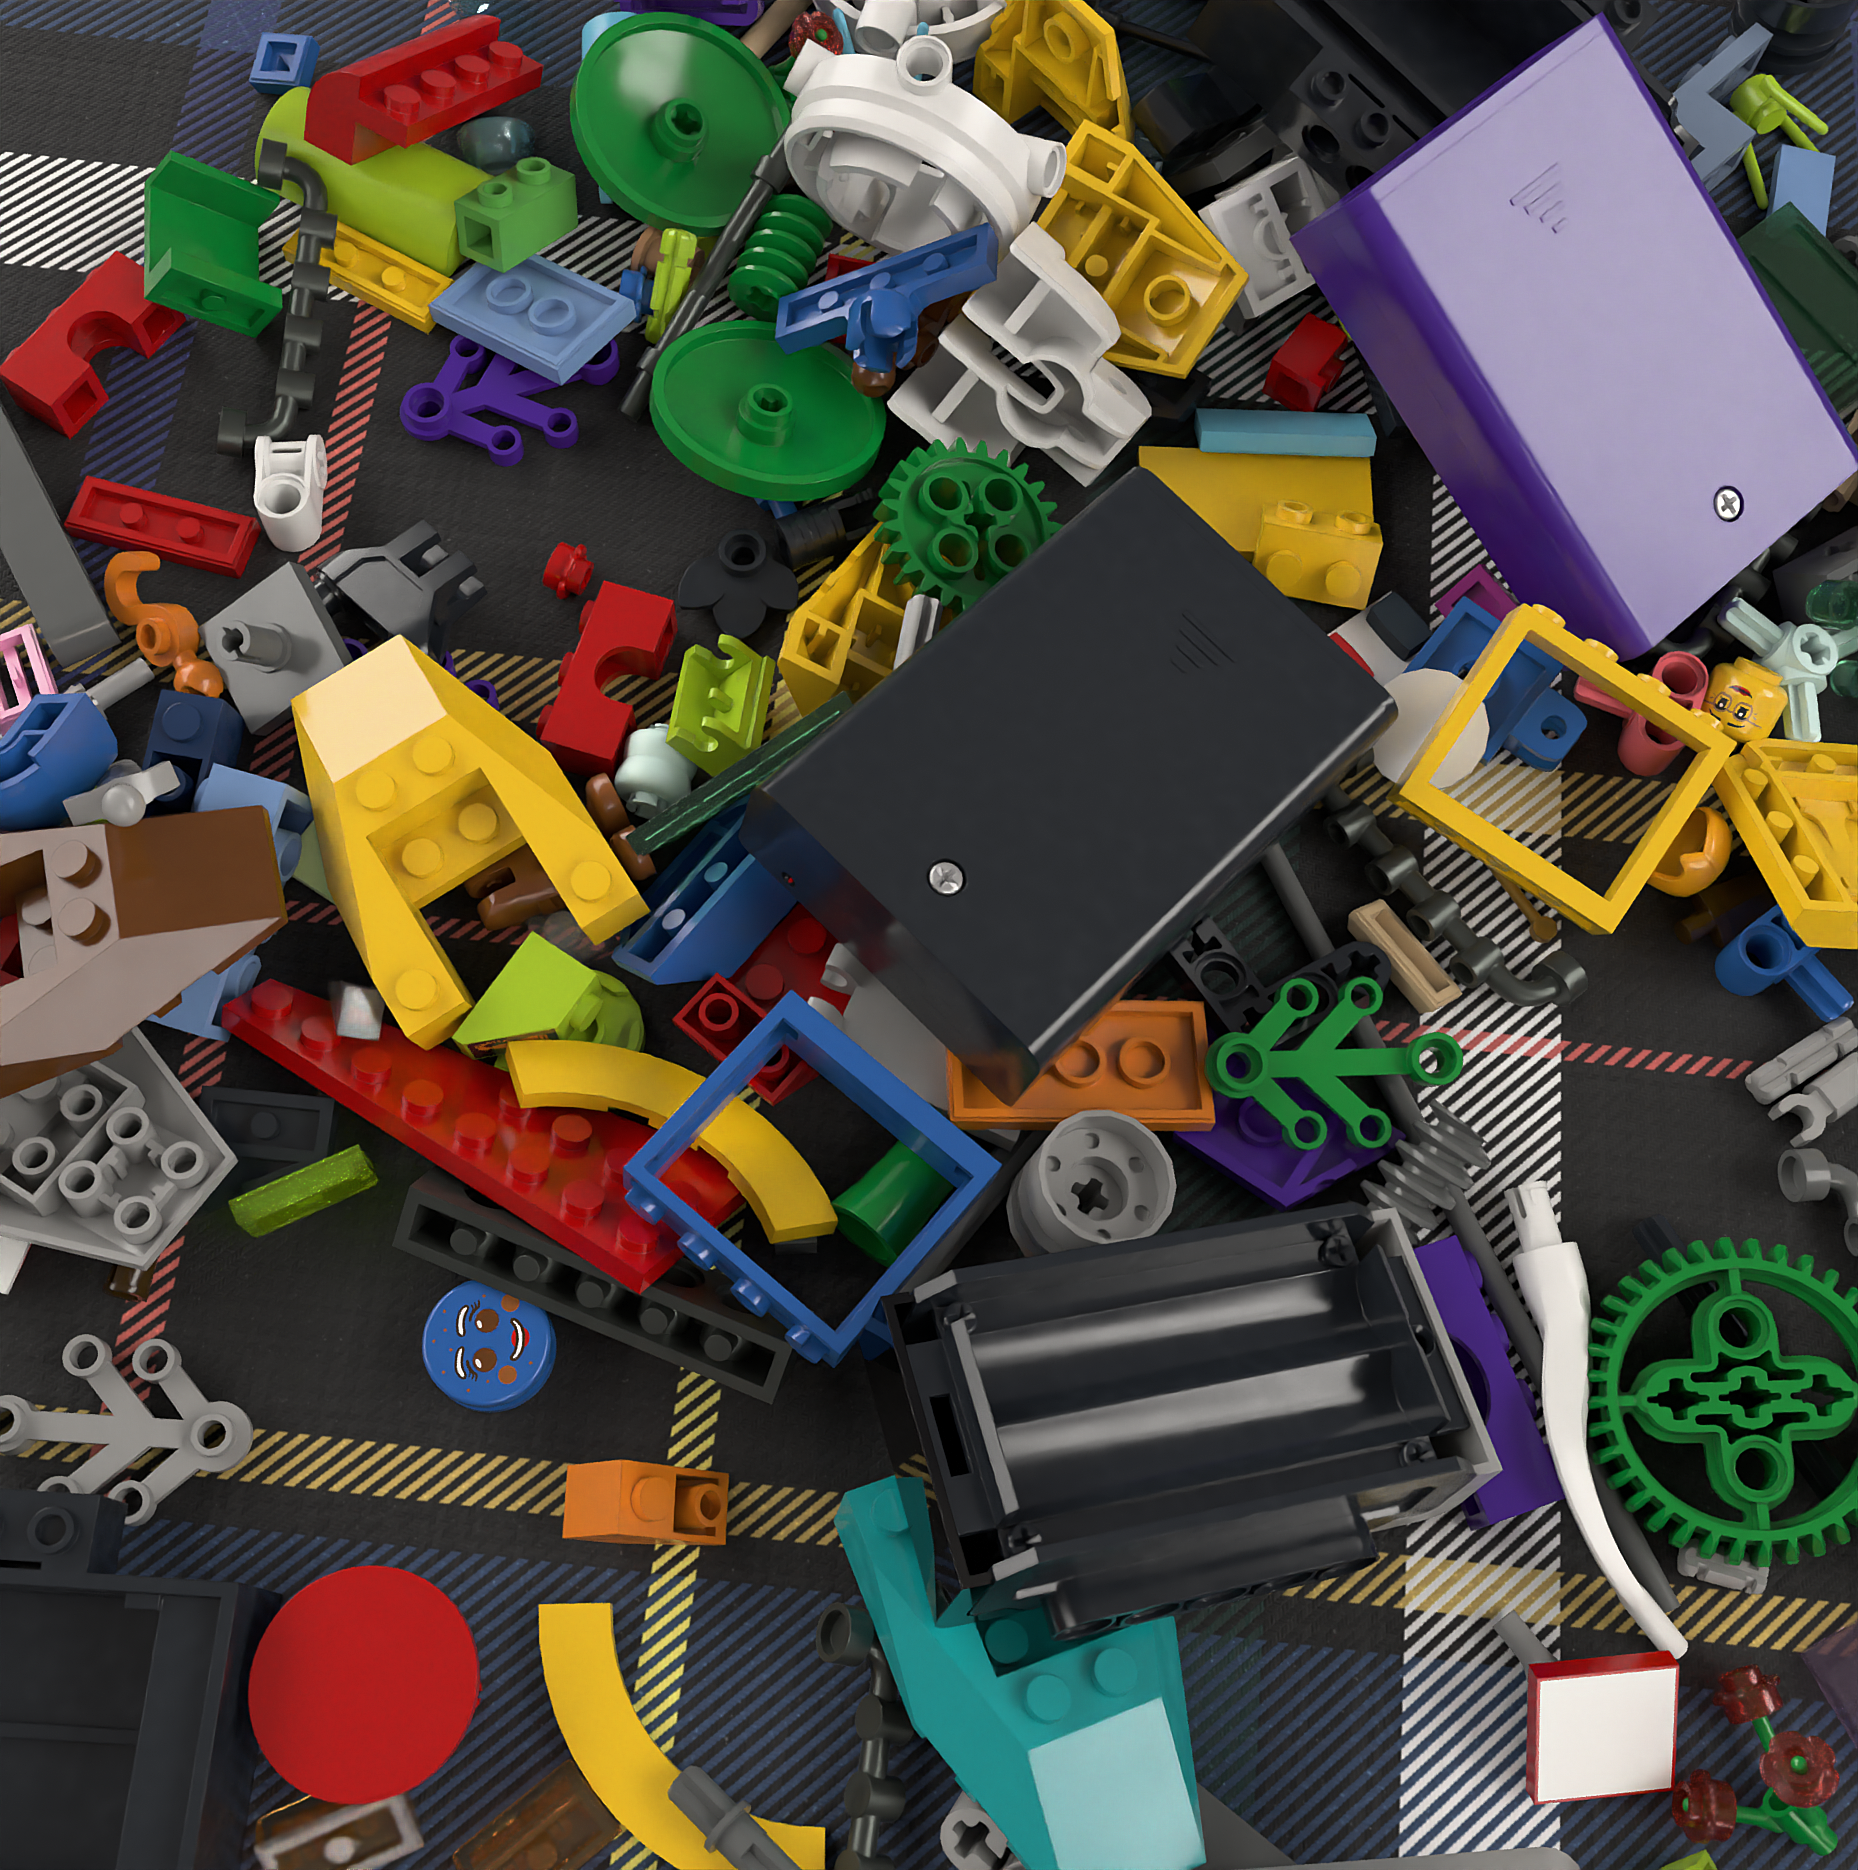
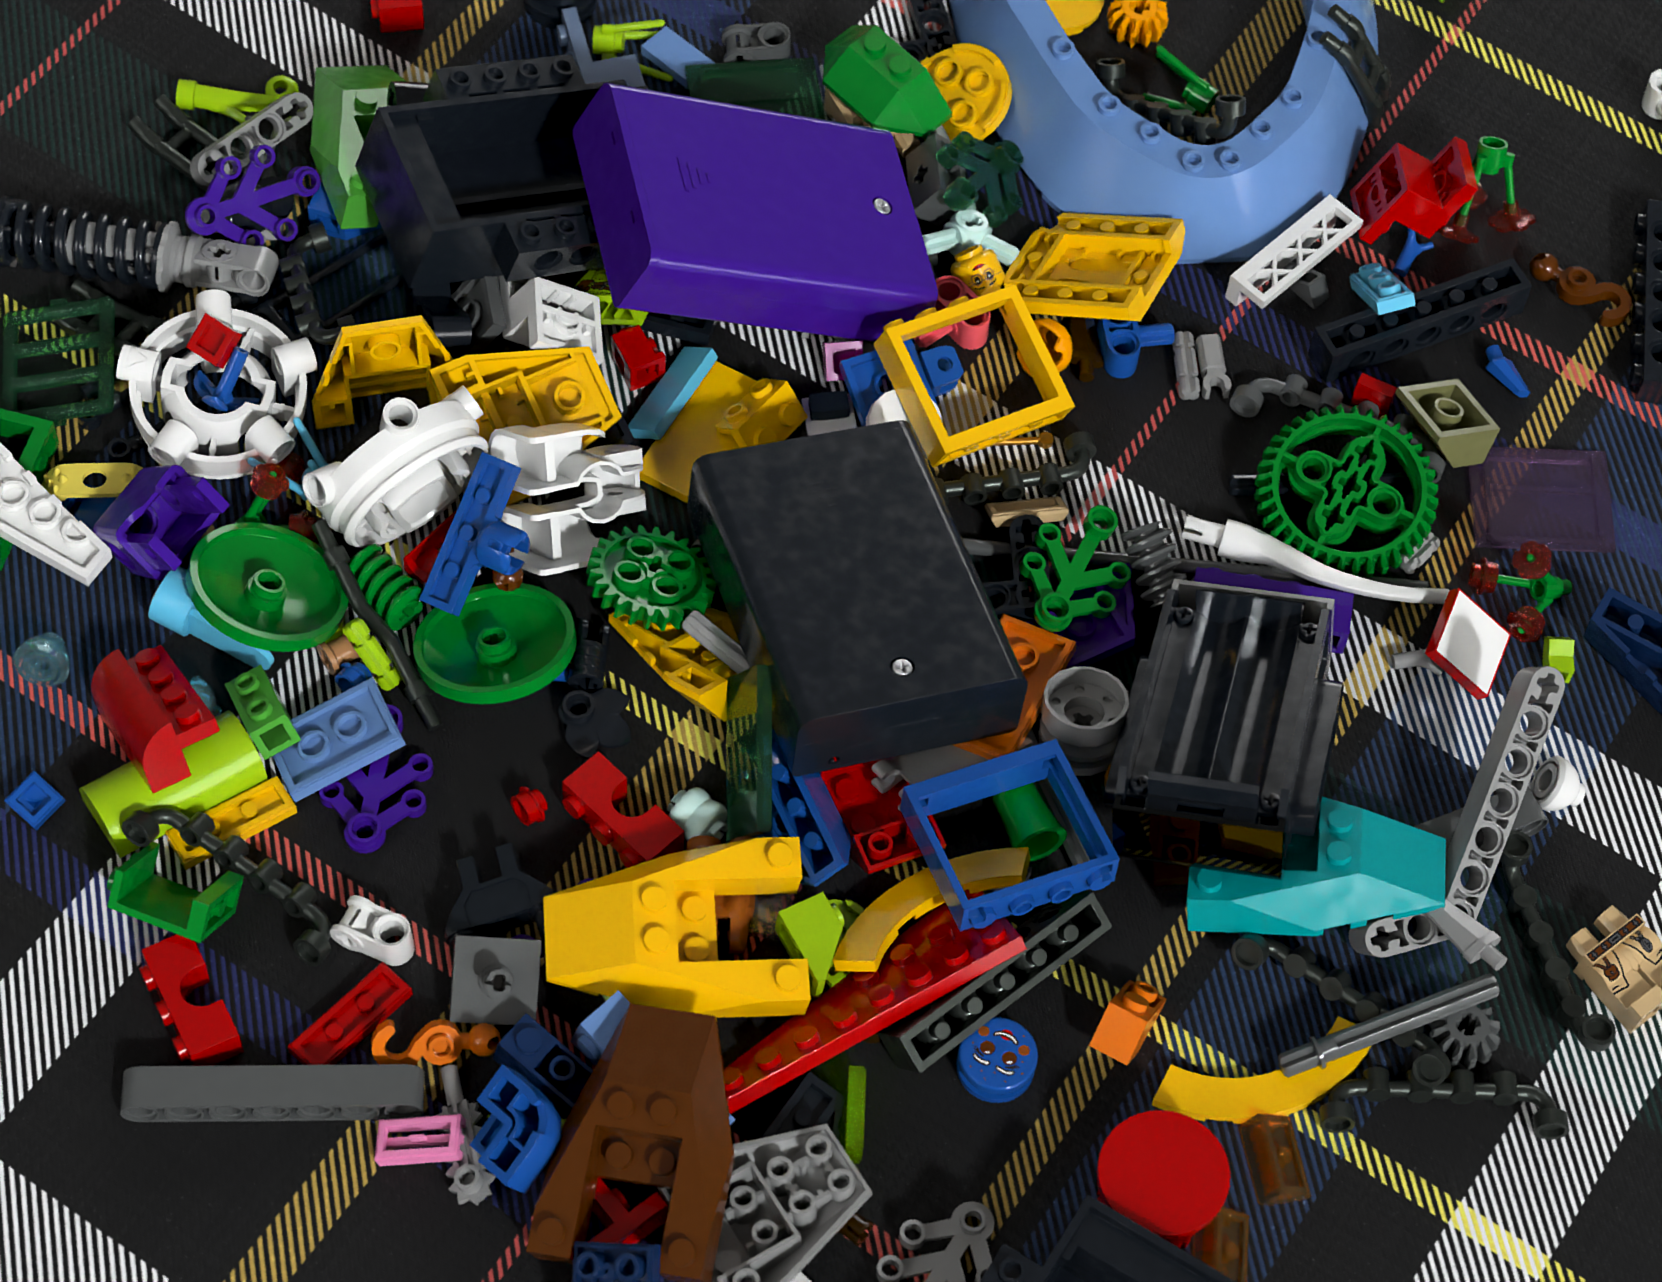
camera: 60 degrees left, 10 degrees down
(122, 793) = (584, 1070): light grey sword -> none
(356, 1009) = (760, 1034): clear piece -> none
(720, 705) = (683, 758): lime hinge -> none

